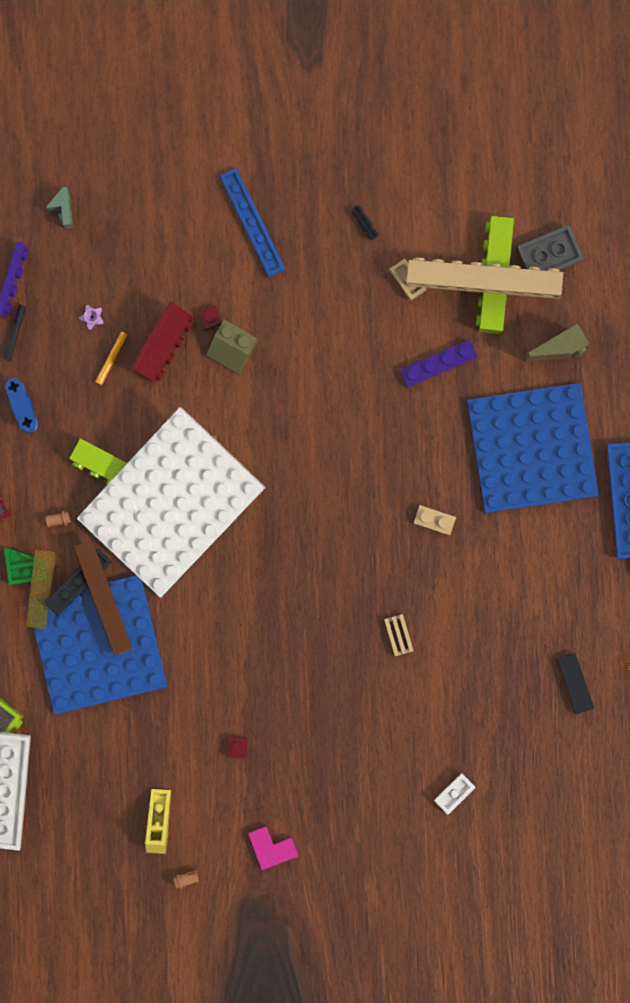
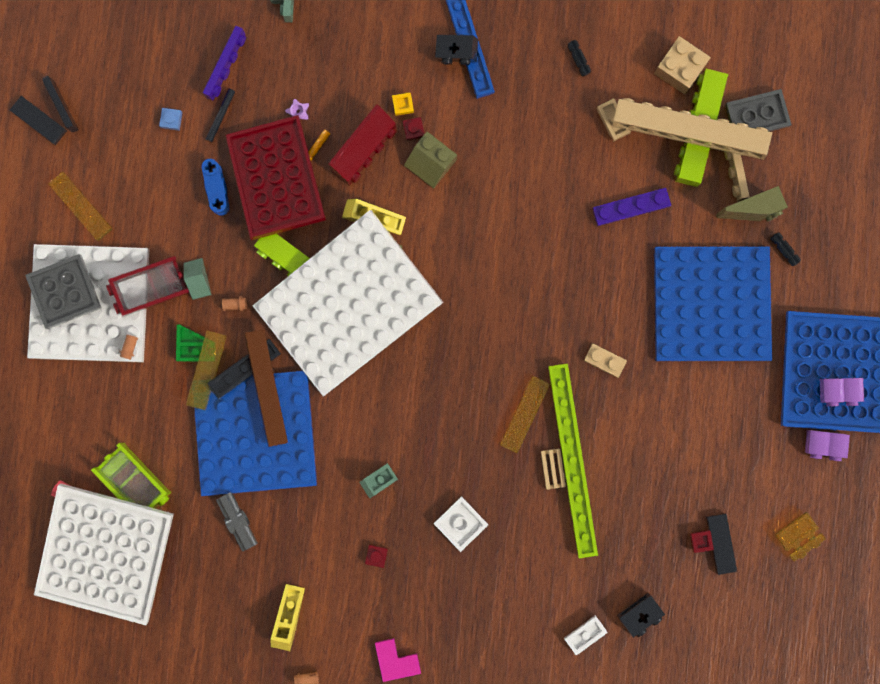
camera: 15 degrees right, 0 degrees up
(16, 499) = (196, 279): none -> sand green slope
(80, 387) = (275, 177): none -> dark red plate
(93, 734) = (237, 521): none -> dark grey piece
(166, 407) = (356, 209): none -> light yellow slope
(196, 294) = (403, 104): none -> yellow plate
(227, 672) = (378, 480): none -> sand green slope
(230, 232) = (448, 43): none -> black brick
(315, 703) = (461, 524): none -> white plate
(363, 585) = (524, 414): none -> clear yellow tile
(417, 624) = (573, 461): none -> lime plate
(467, 215) = (682, 65): none -> tan brick
(508, 755) = (646, 606): none -> black brick
(537, 315) = (737, 173): none -> tan plate
(555, 684) = (701, 541): none -> dark red plate
(596, 383) = (786, 250): none -> black axle

